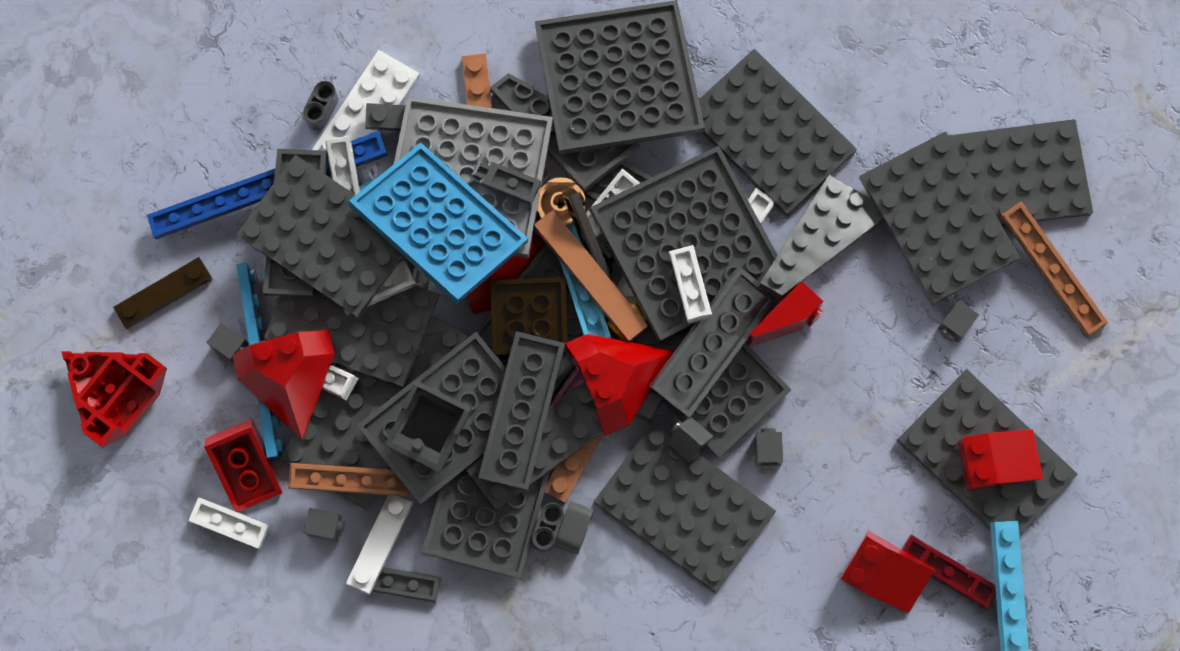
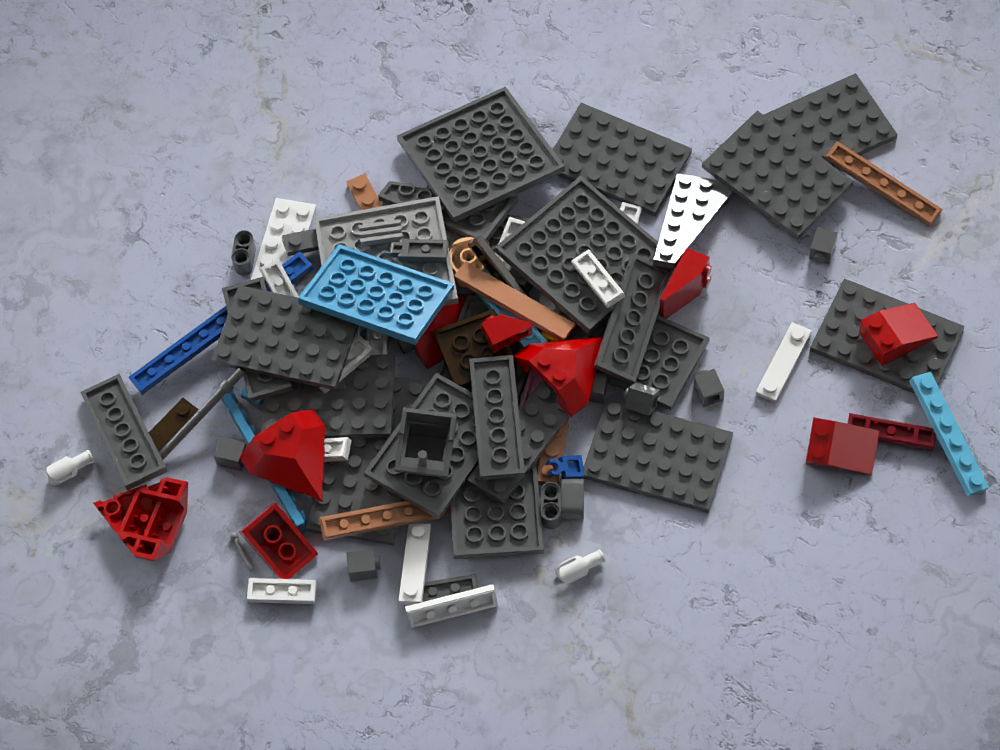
camera: 15 degrees left, 15 degrees down
(49, 297) = (67, 467): none -> white arm
(120, 279) = (123, 432): none -> dark grey plate
(201, 440) = (234, 536): none -> light grey hinge
(242, 270) = (225, 387): none -> dark grey bar
(401, 607) = (451, 606): none -> white tile
(474, 142) = (380, 229): none -> light grey tile
(551, 609) = (578, 567): none -> white arm
(565, 310) = (504, 330): none -> red slope
(582, 489) = (569, 466): none -> blue plate
(862, 445) = (783, 362): none -> white plate

